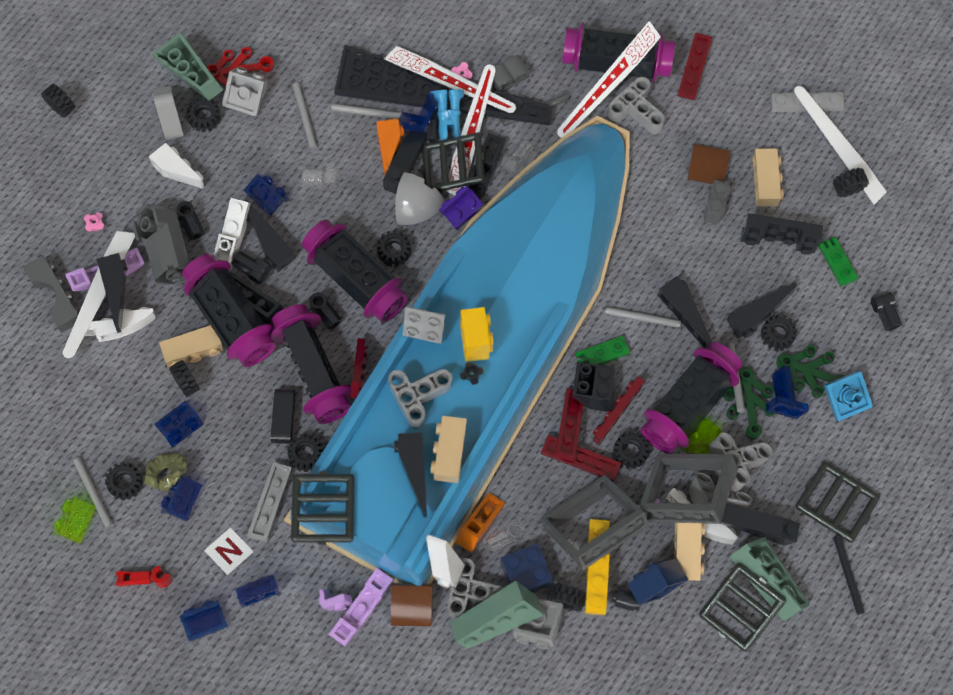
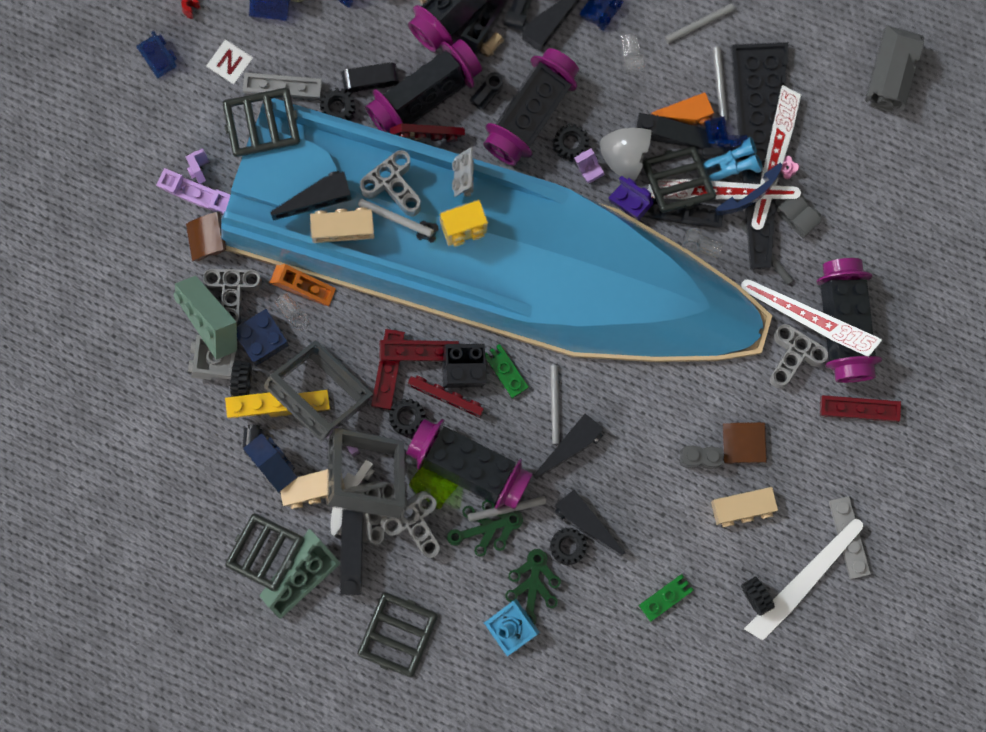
camera: 75 degrees right, 10 degrees up
(257, 591) = (193, 94): clear blue bracket -> none
(275, 294) = (488, 47): none -> tan pin
(422, 237) = (589, 166): none -> lavender bracket
(444, 562) = (242, 254): white slope -> none
(453, 397) = (396, 217): none -> light grey bar
(475, 84) = (731, 206): none -> dark blue slope
(771, 229) = (676, 500): black piece -> none
(785, 401) = (496, 562): clear blue bracket -> none
(848, 575) = (322, 656): black bar -> none
(885, 306) = (623, 654): black piece -> none

